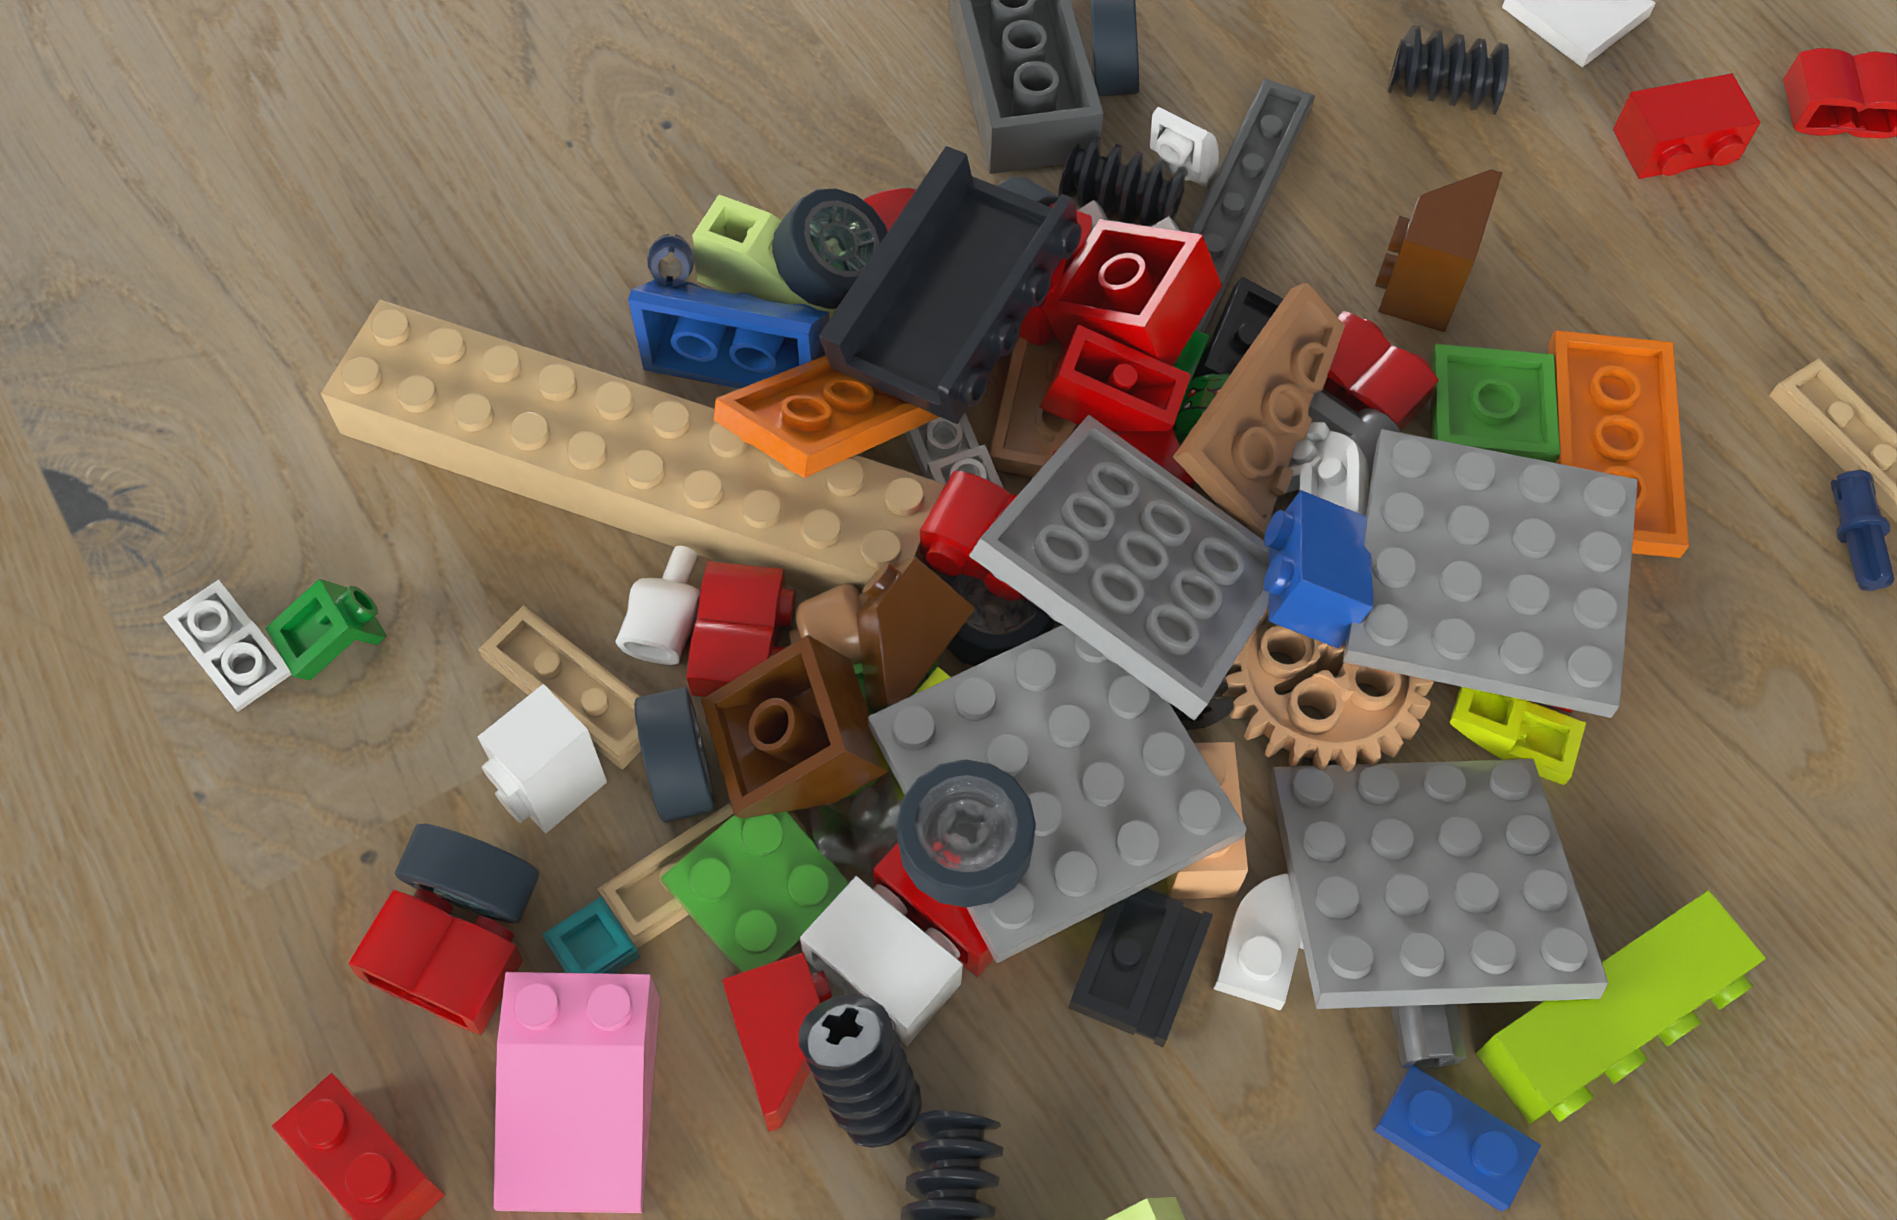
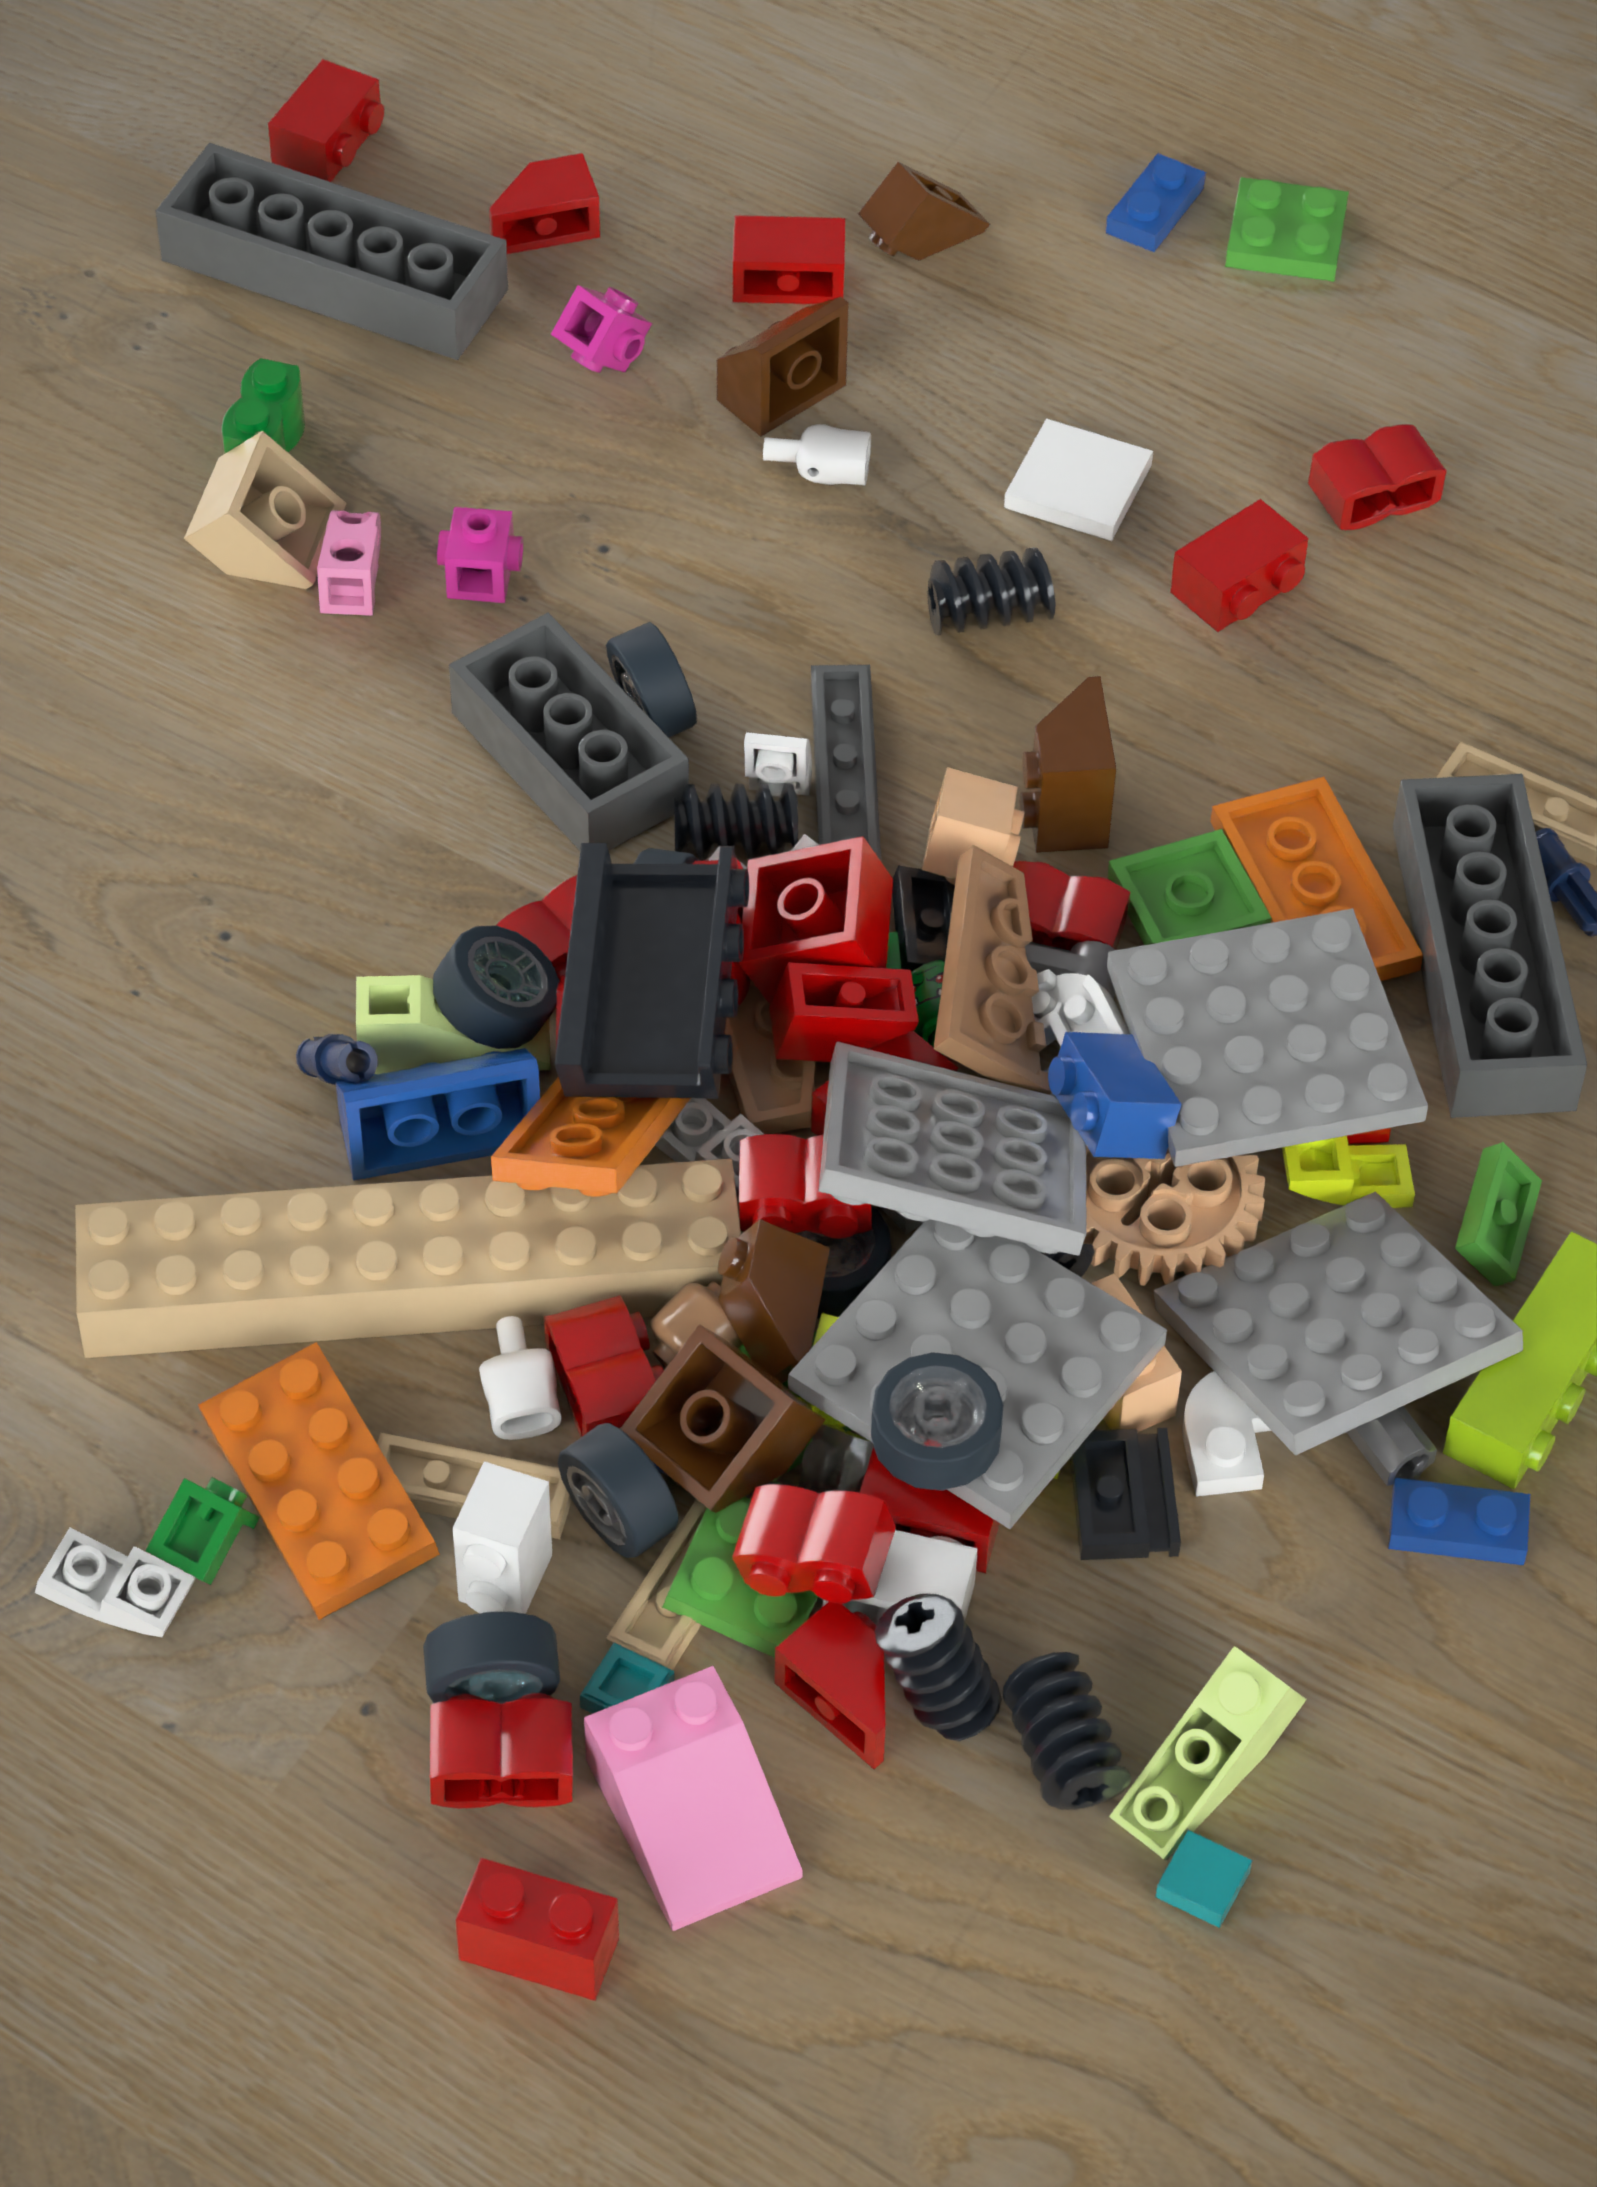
camera: 25 degrees left, 10 degrees down
(444, 627) = (318, 1480): none -> orange plate
(804, 896) = (814, 1543): none -> red brick
(1330, 257) = (968, 814): none -> light nougat brick
(1644, 834) = (1498, 1214): none -> bright green plate
(1757, 567) = (1488, 946): none -> dark grey brick

